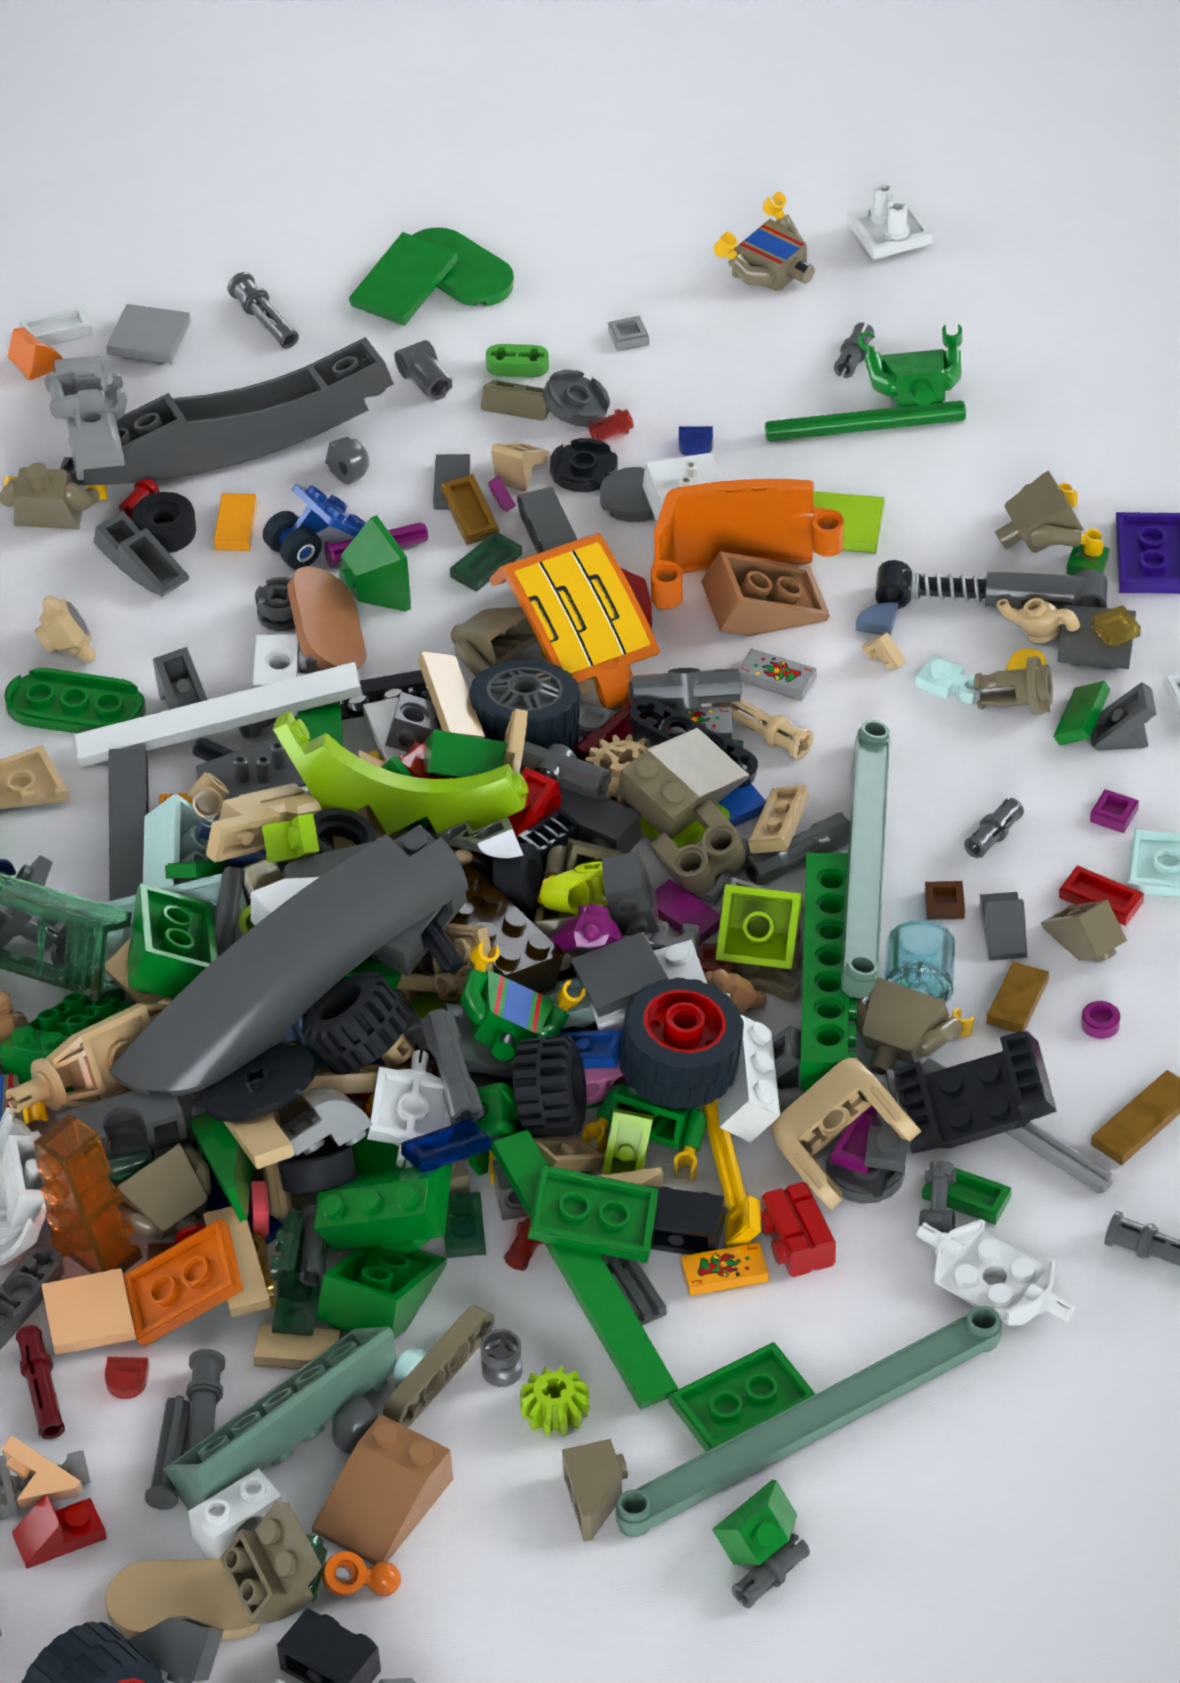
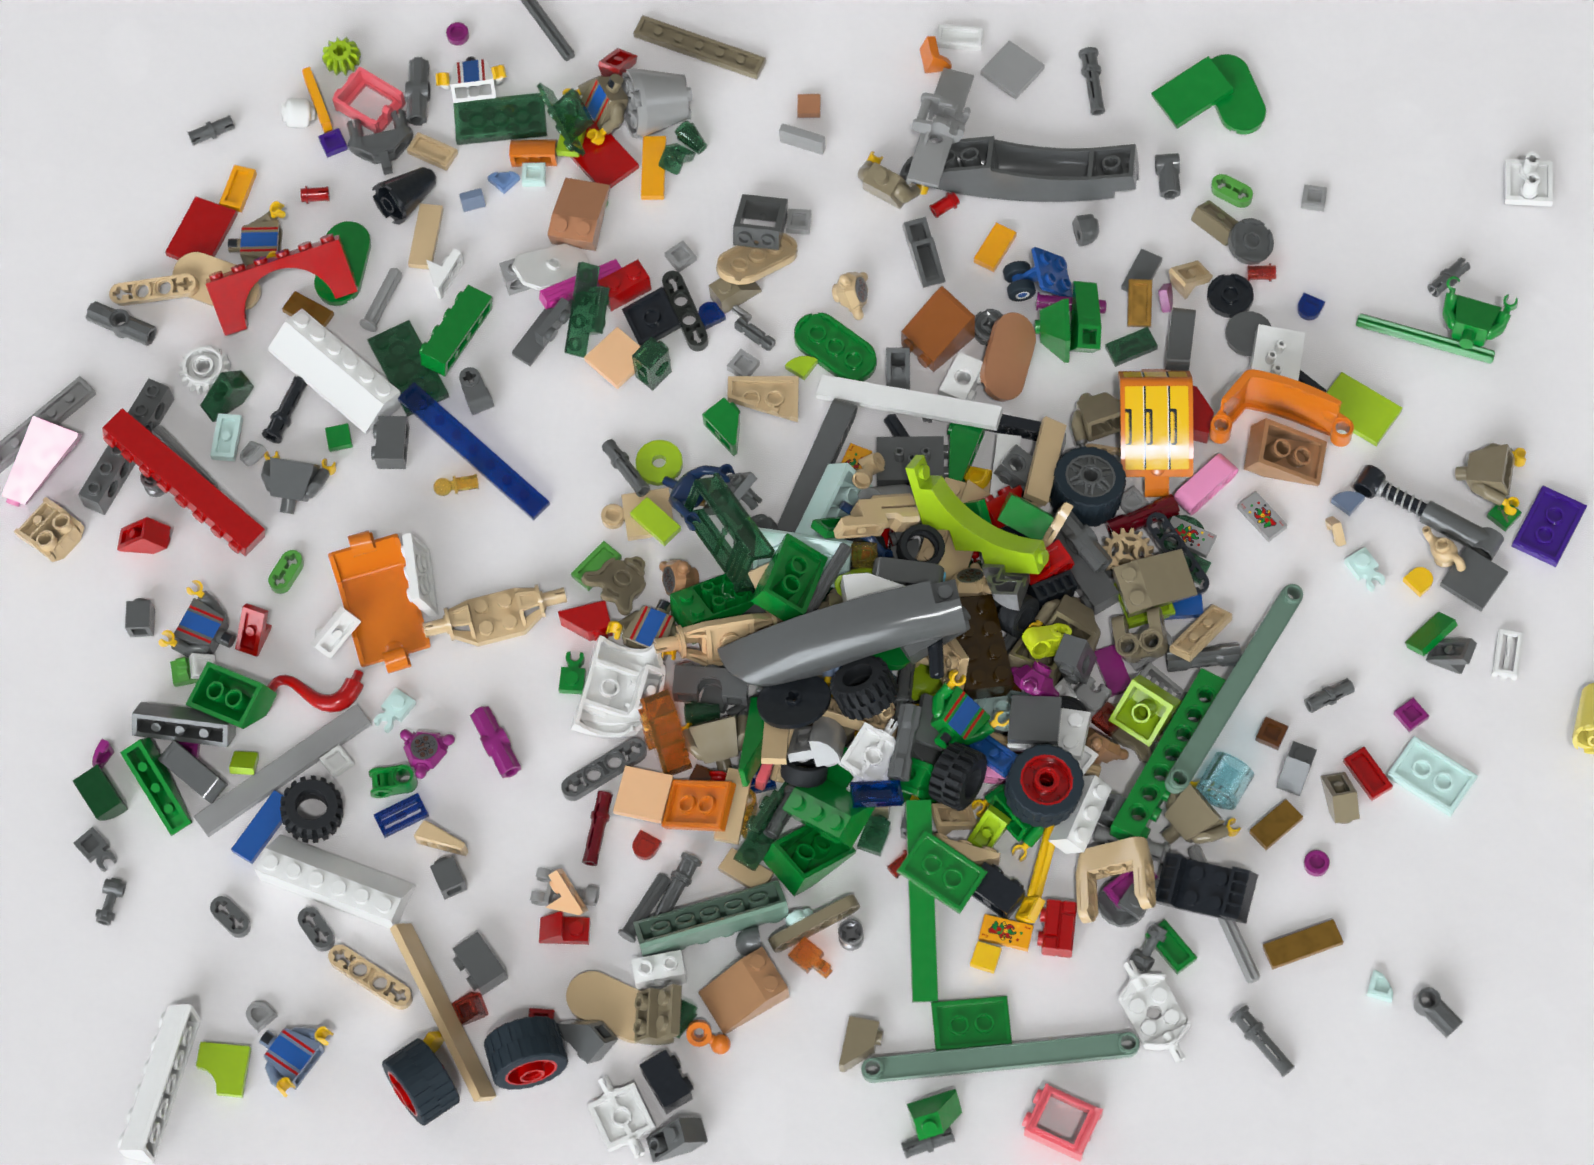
camera: 30 degrees right, 20 degrees up
(39, 734) = (801, 366): none -> lime tile
(167, 507) = (953, 218): black tyre -> none
(216, 619) = (939, 330): none -> dark orange slope
(290, 839) = (885, 541): lime slope -> none
(419, 543) = (1085, 318): none -> green slope
(454, 1413) = (809, 956): none -> clear orange plate
(554, 1400) = (858, 971): lime gear -> none
(659, 1308) = (946, 942): dark grey tile -> none
(685, 648) = (1205, 484): none -> bright pink beam
(687, 687) = (1192, 512): dark grey piece -> none
(713, 1309) = (985, 957): none -> yellow tile
(771, 253) = (1436, 174): torso -> none
(773, 728) = (1236, 560): tan pin -> none
(953, 1487) = (1073, 1150): none -> coral window
(1031, 685) = (1406, 601): dark tan piece -> none
(1116, 626) = (1486, 580): clear yellow tile -> none

